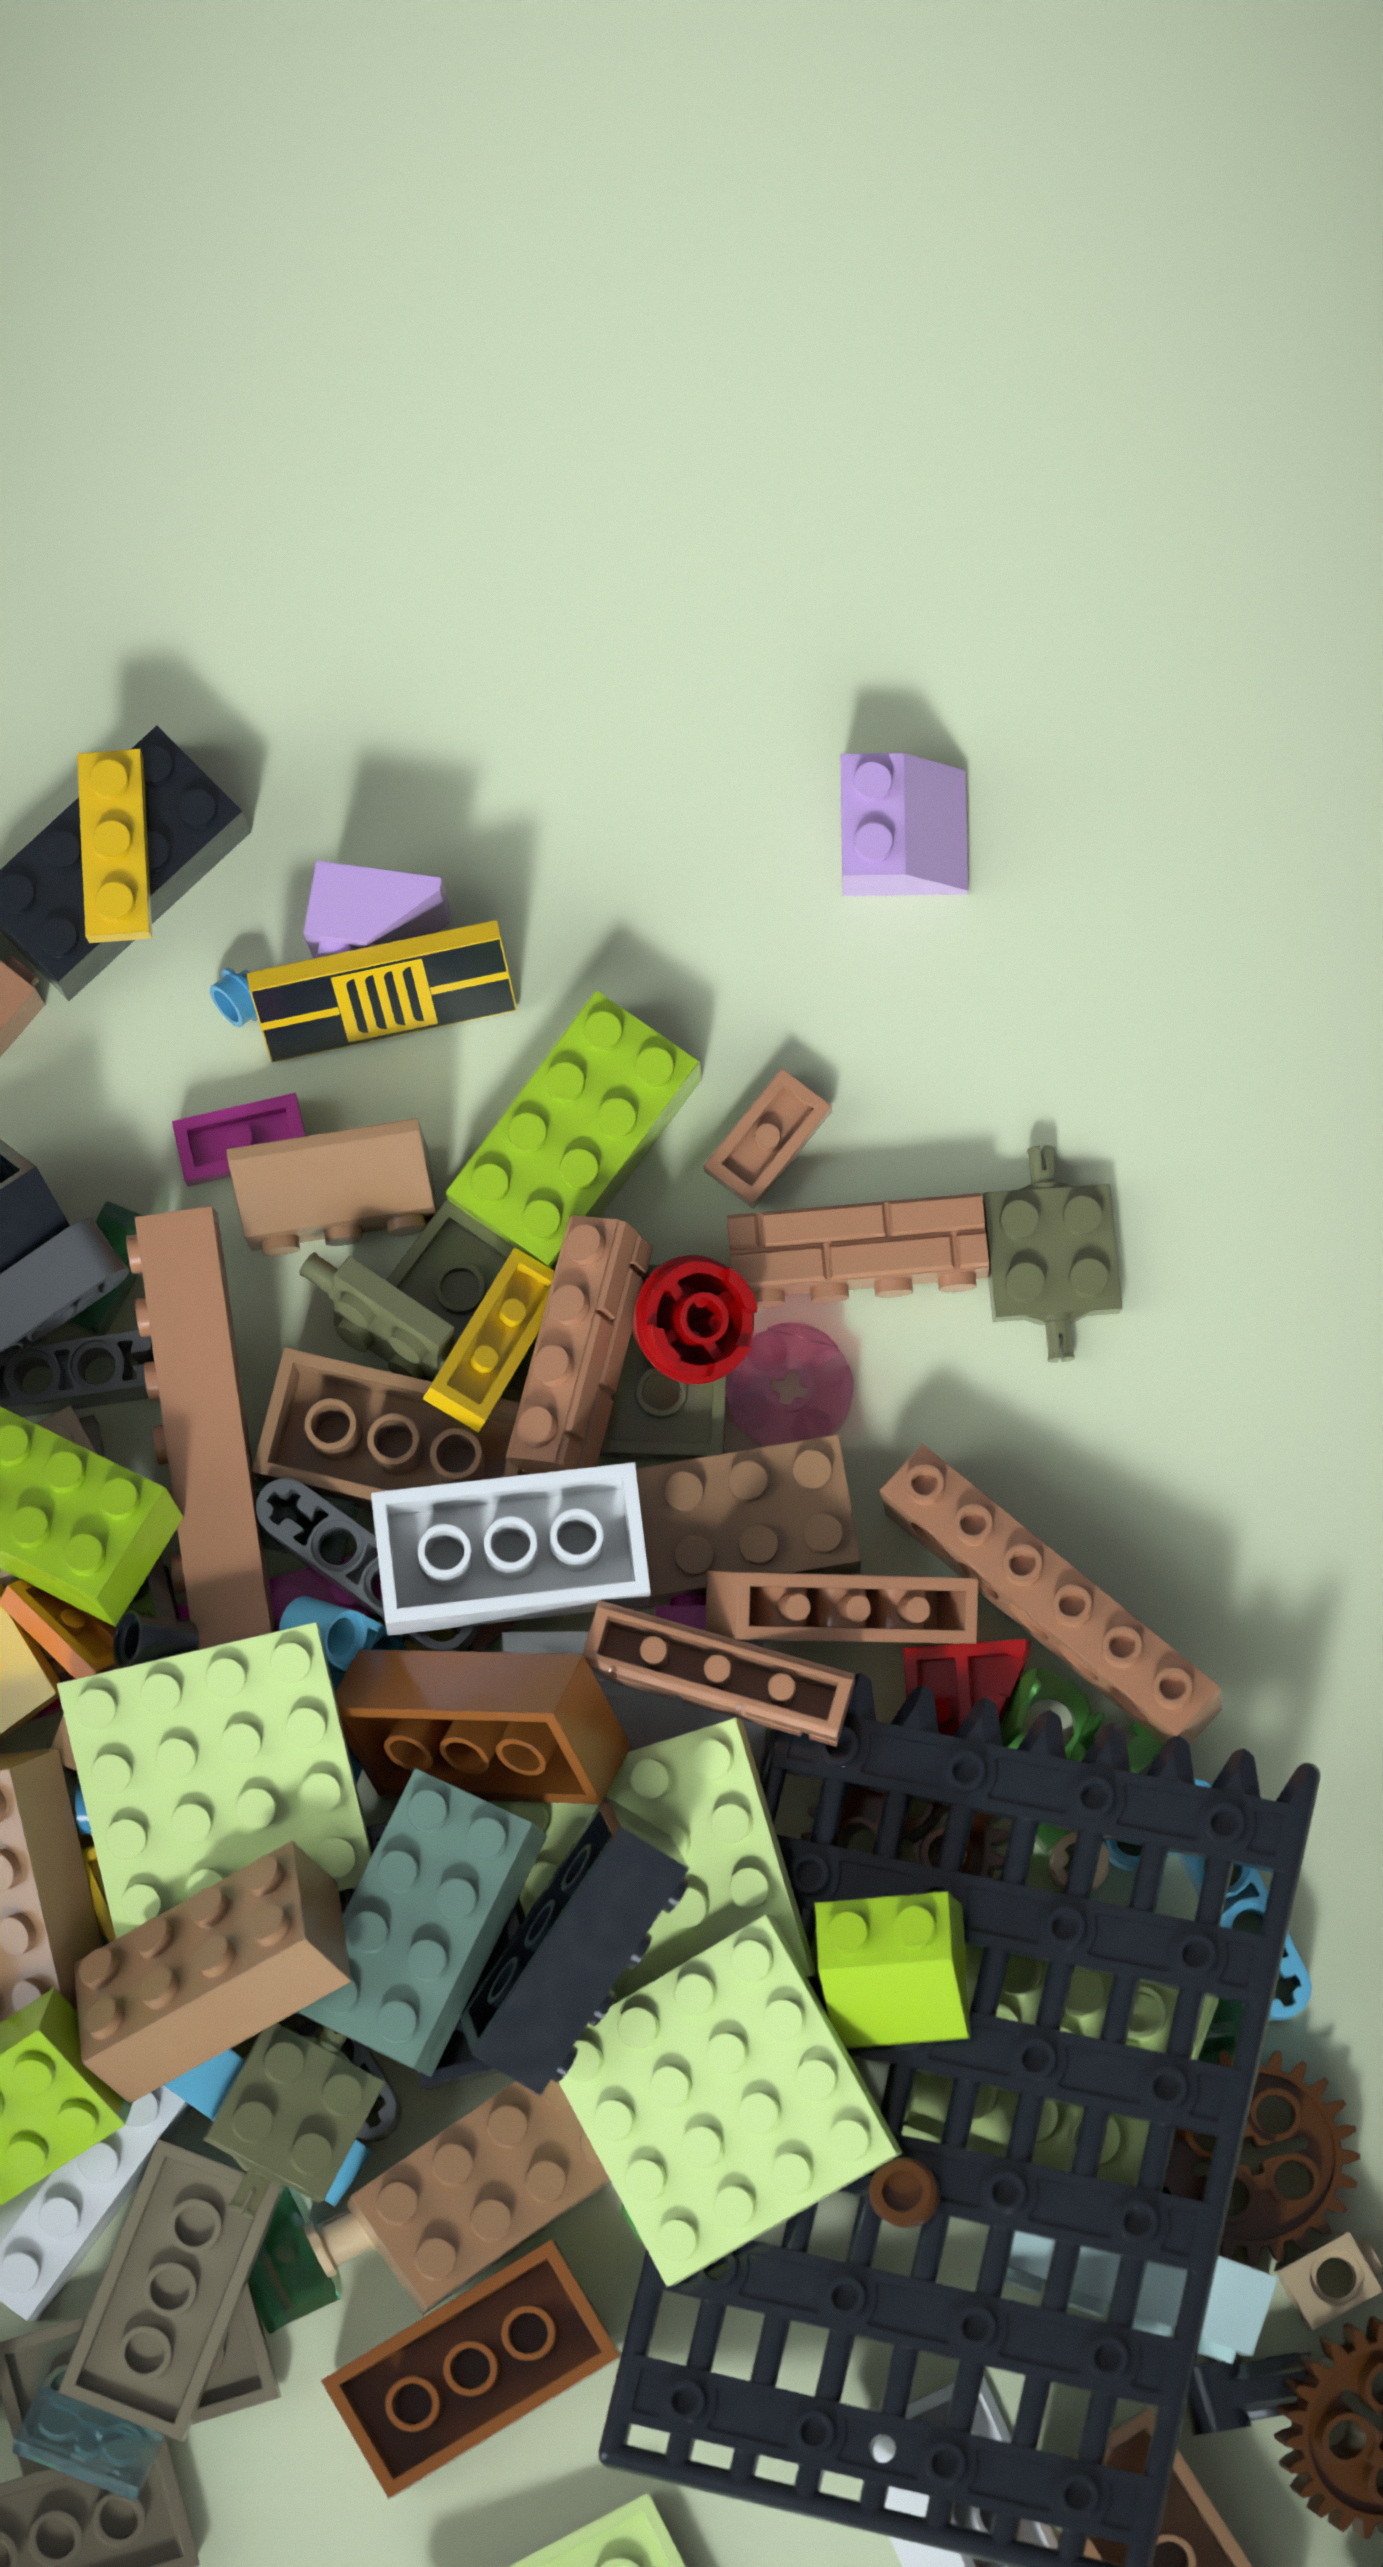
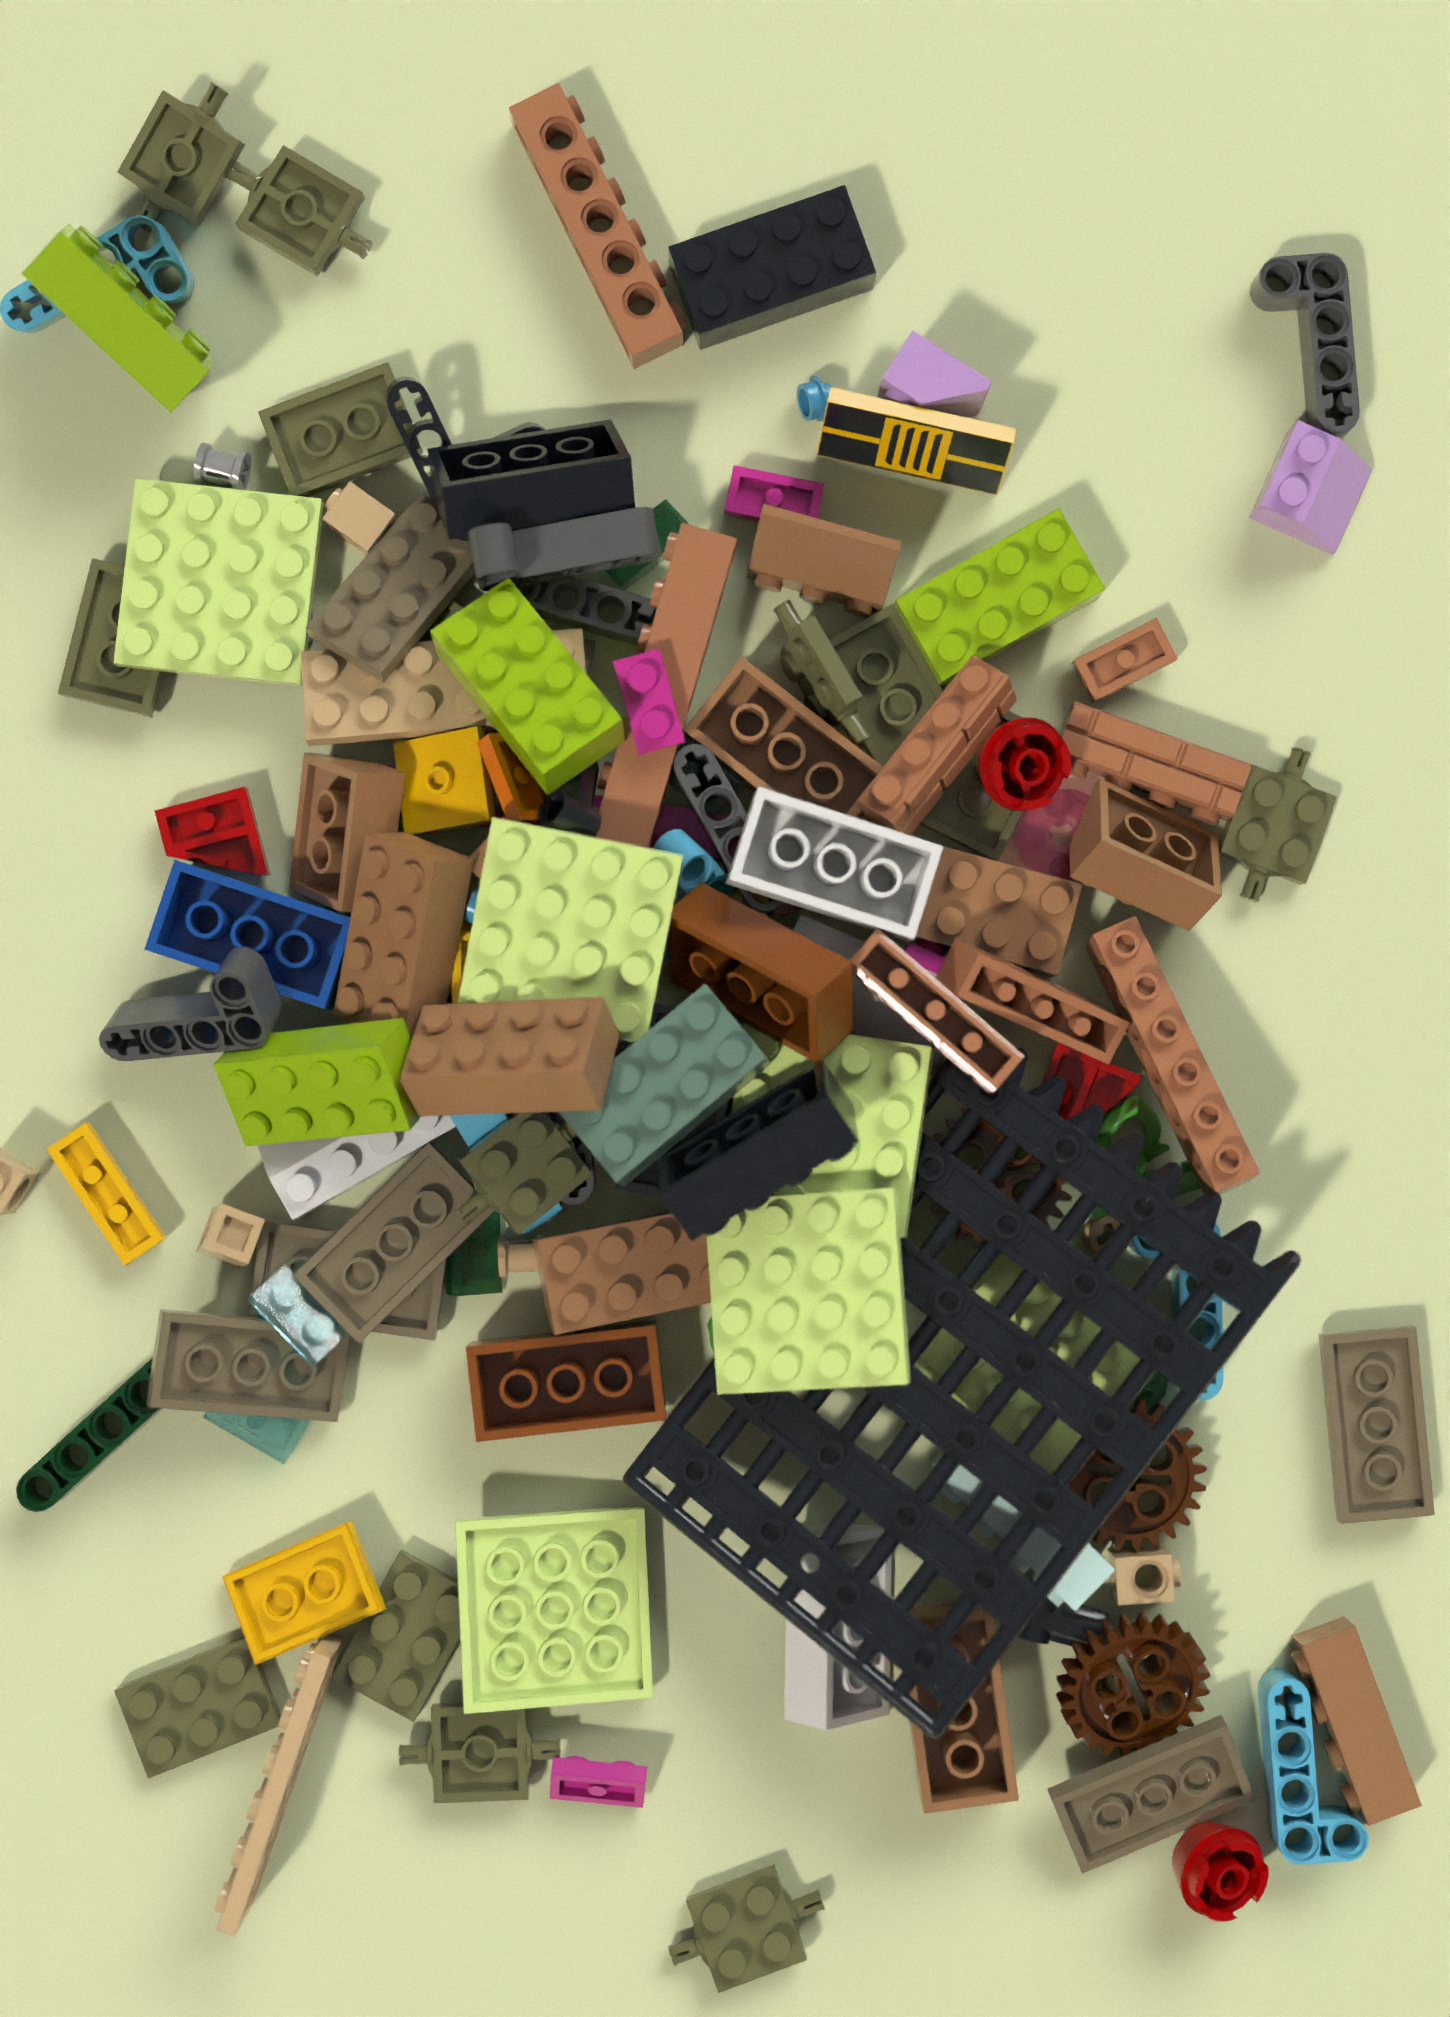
camera: 10 degrees right, 10 degrees up
(114, 846) = (779, 256): yellow plate -> none
(192, 1454) = (649, 701): none -> dark pink plate
(493, 1342) = (883, 717): yellow plate -> none
(827, 656) = (1315, 346): none -> dark grey beam
(894, 1969) = (960, 1261): lime slope -> none
(903, 1365) = (1146, 856): none -> medium nougat slope
(904, 2192) = (900, 1408): reddish brown tile -> none

